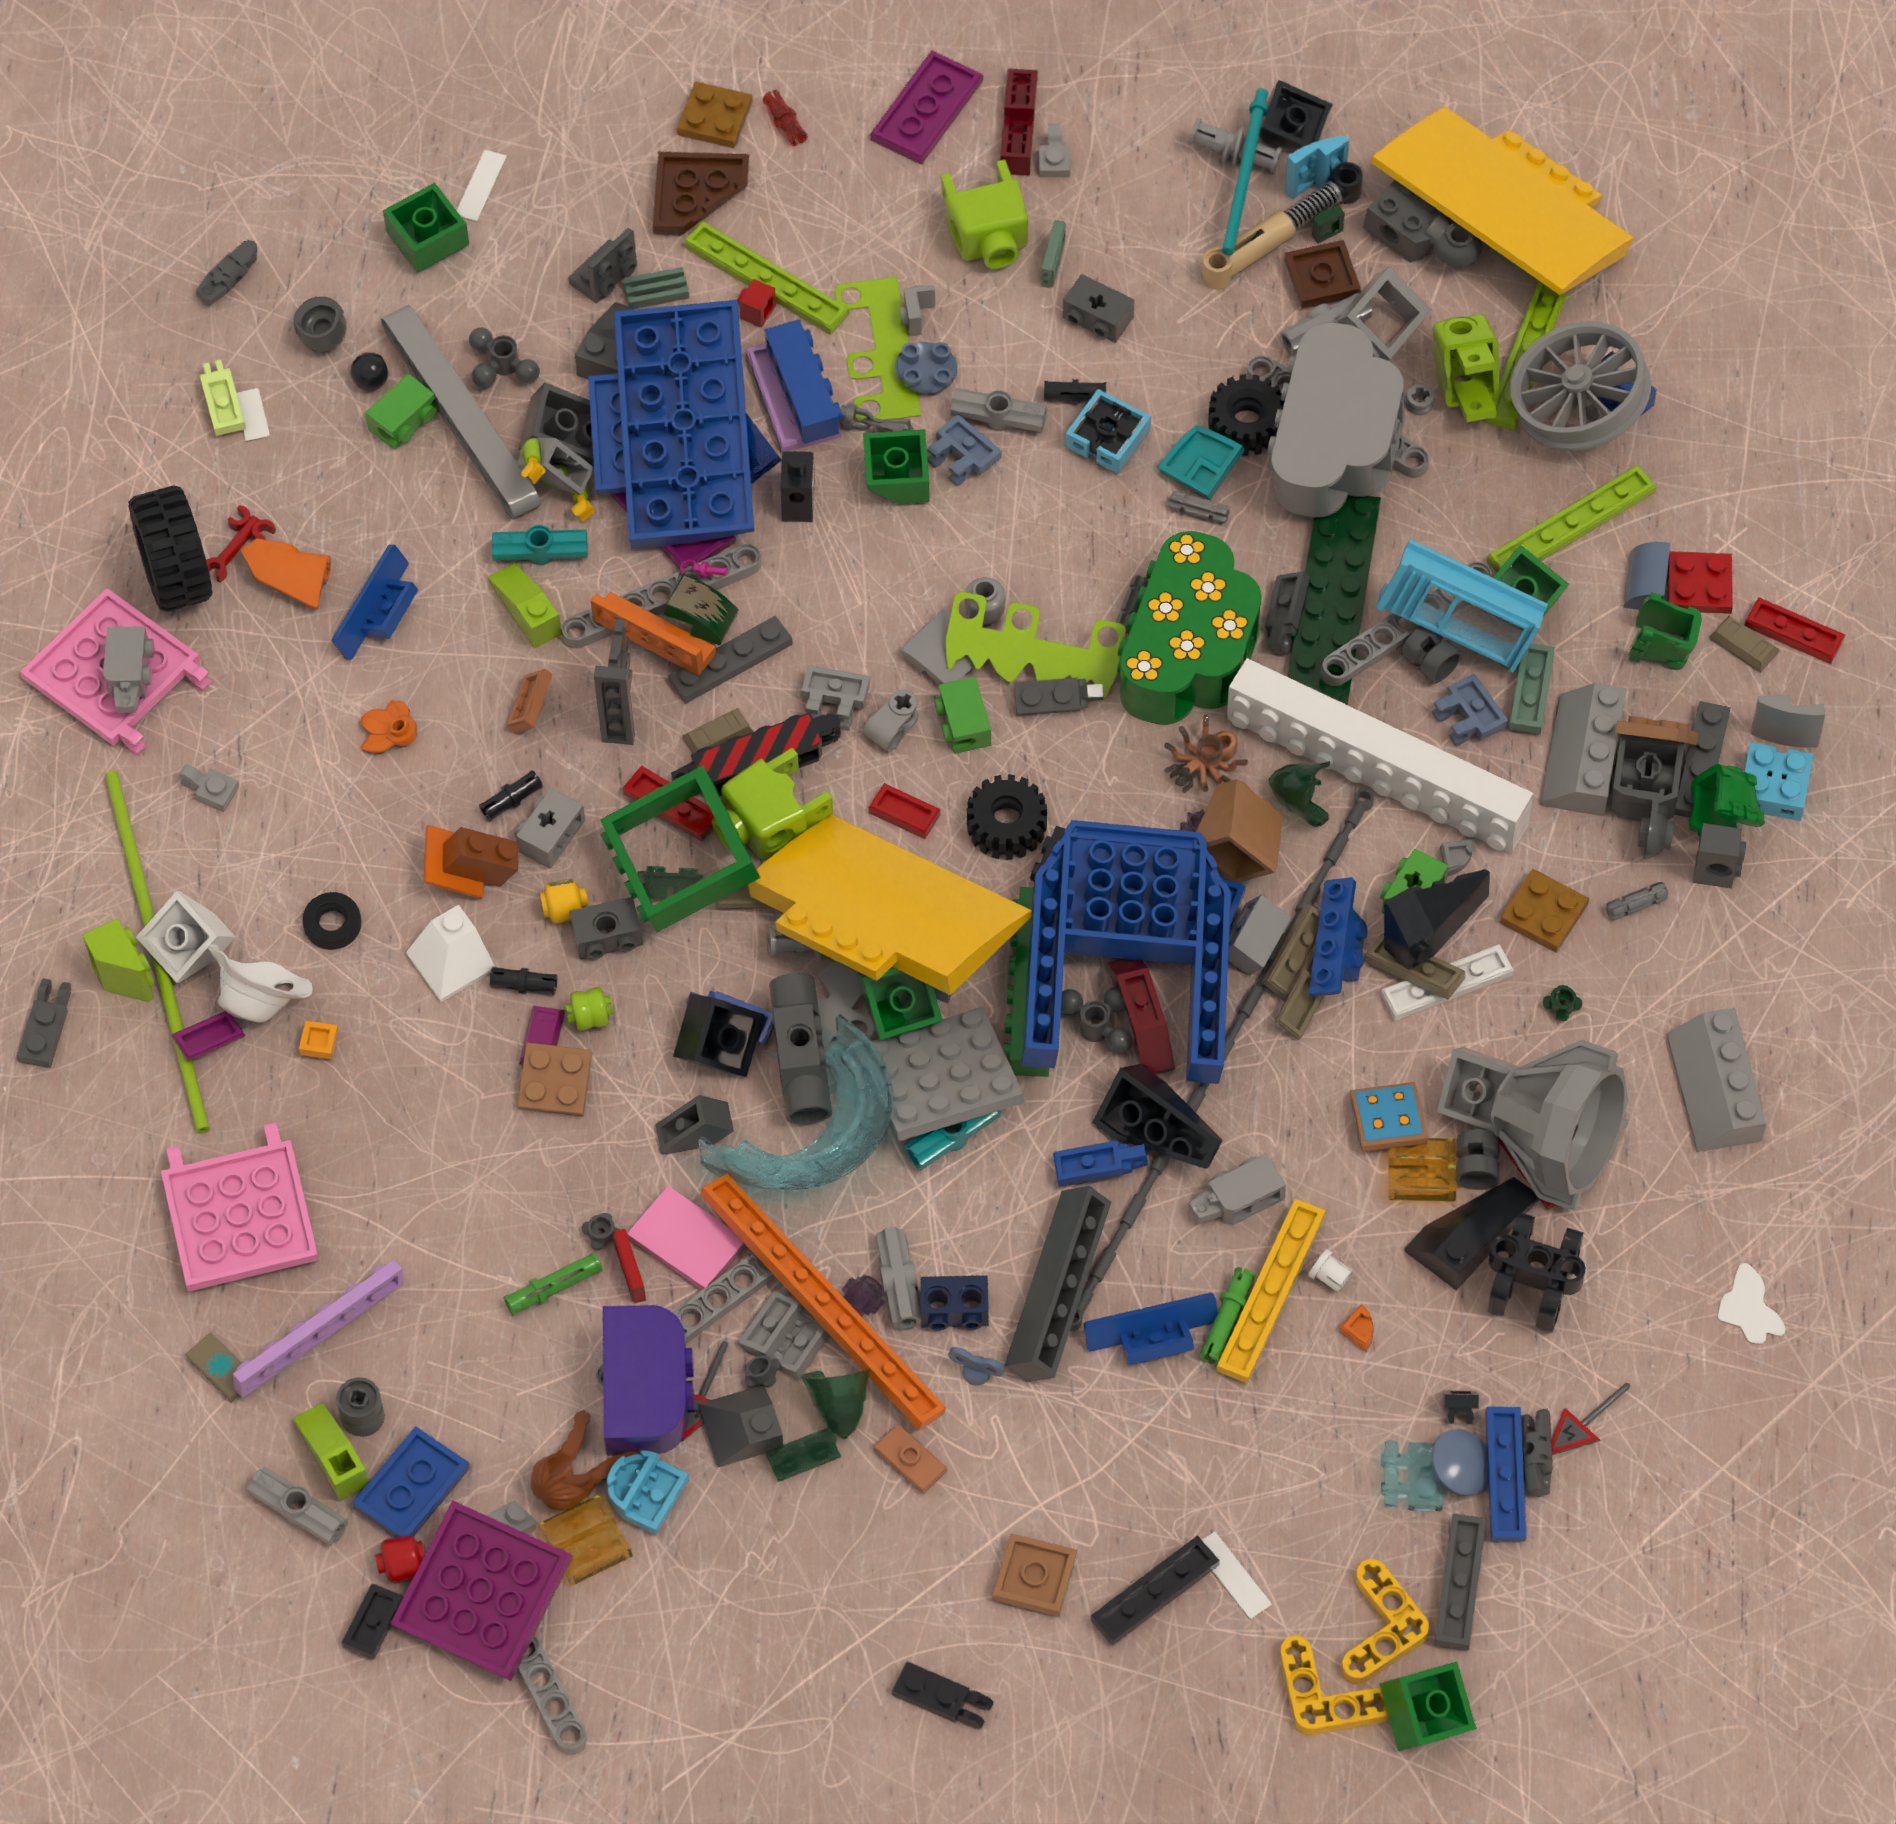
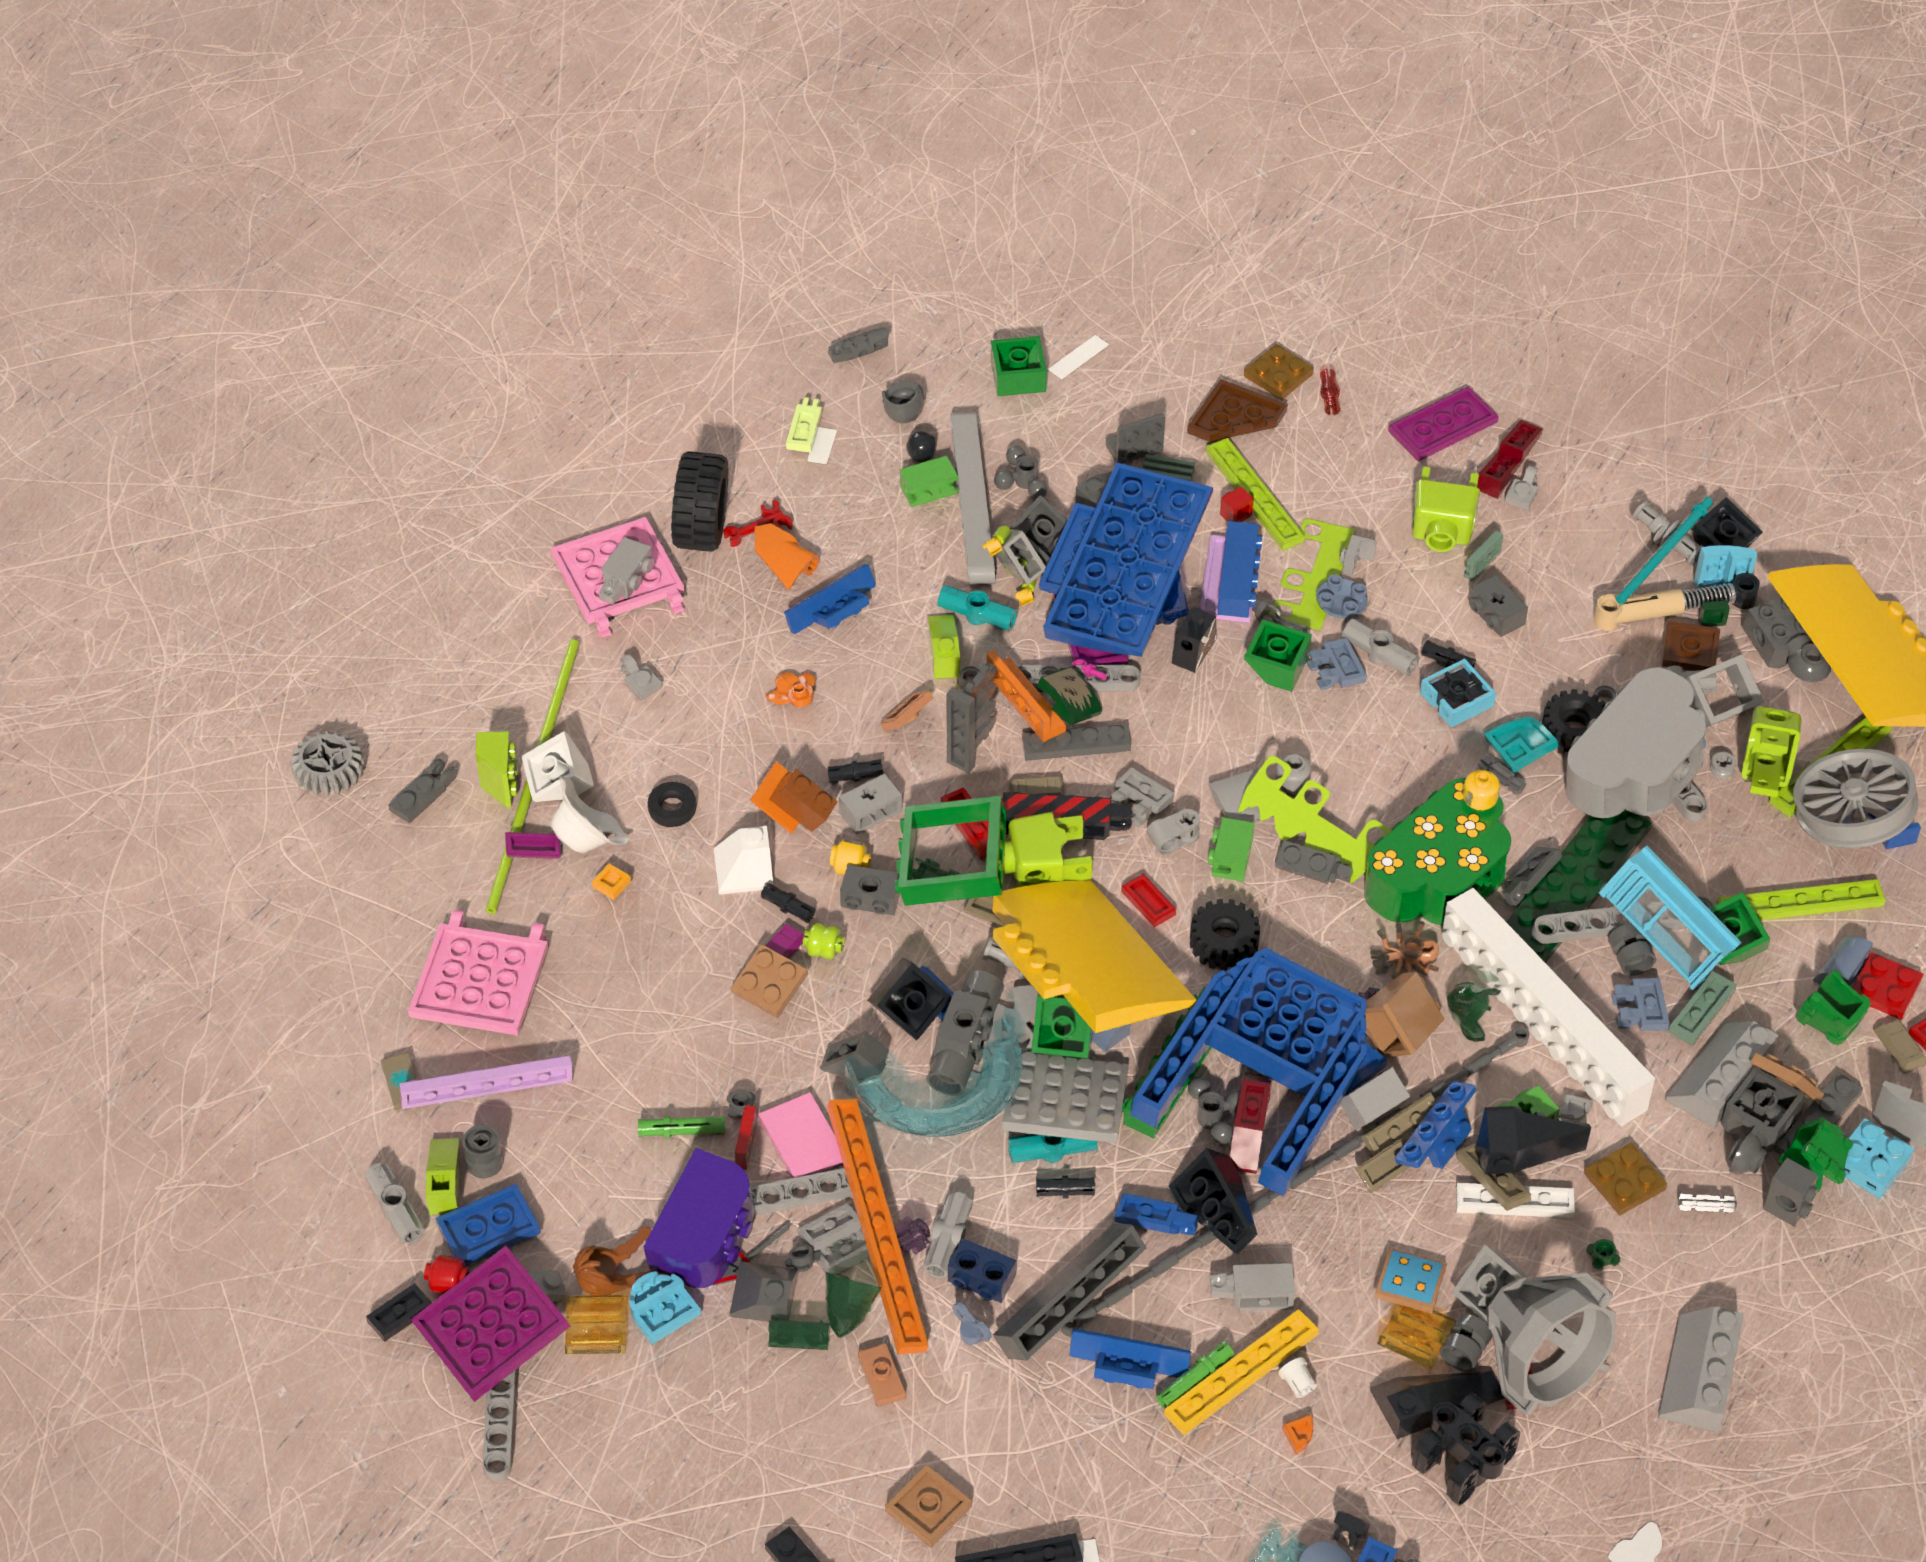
camera: 25 degrees right, 10 degrees down
(988, 1171) = (1065, 1186): none -> black pin
(1204, 544) = (1481, 789): none -> yellow head

